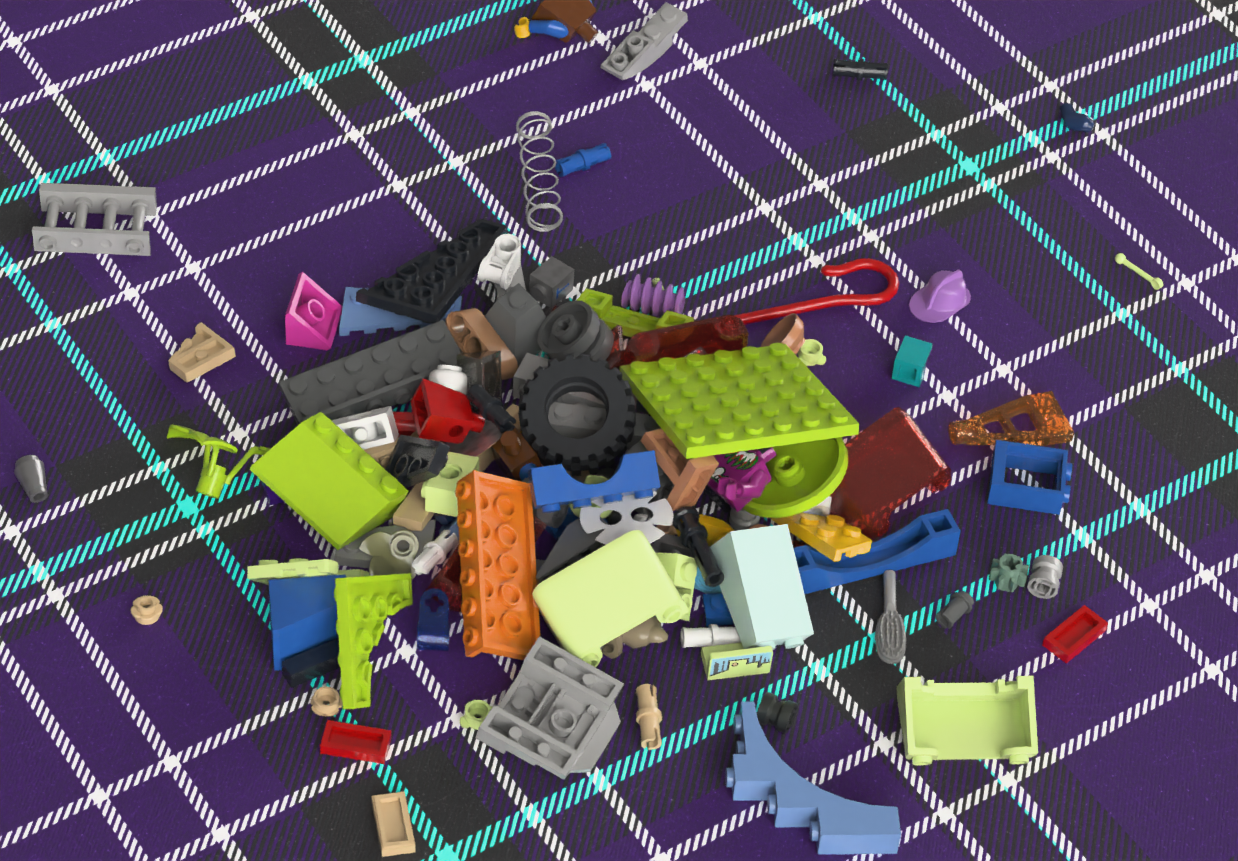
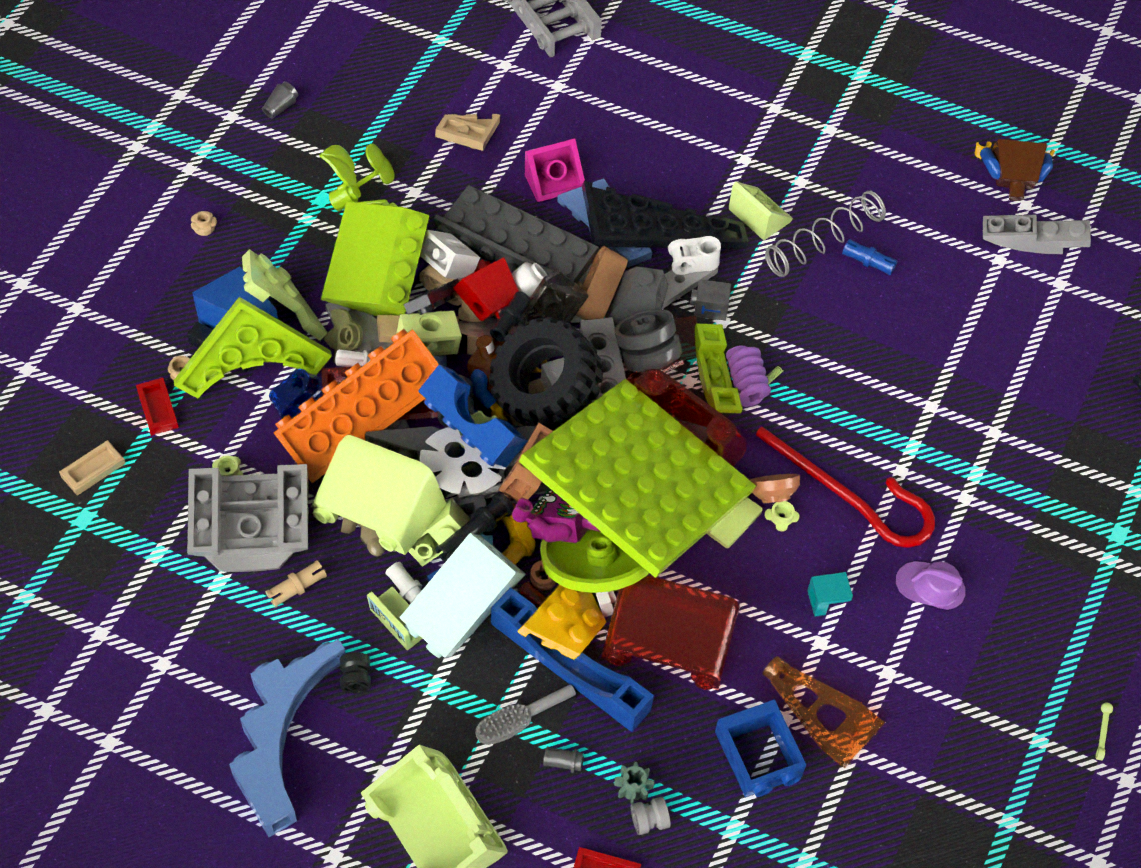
camera: 60 degrees right, 10 degrees up
(473, 204) = (757, 210): none -> yellowish green slope

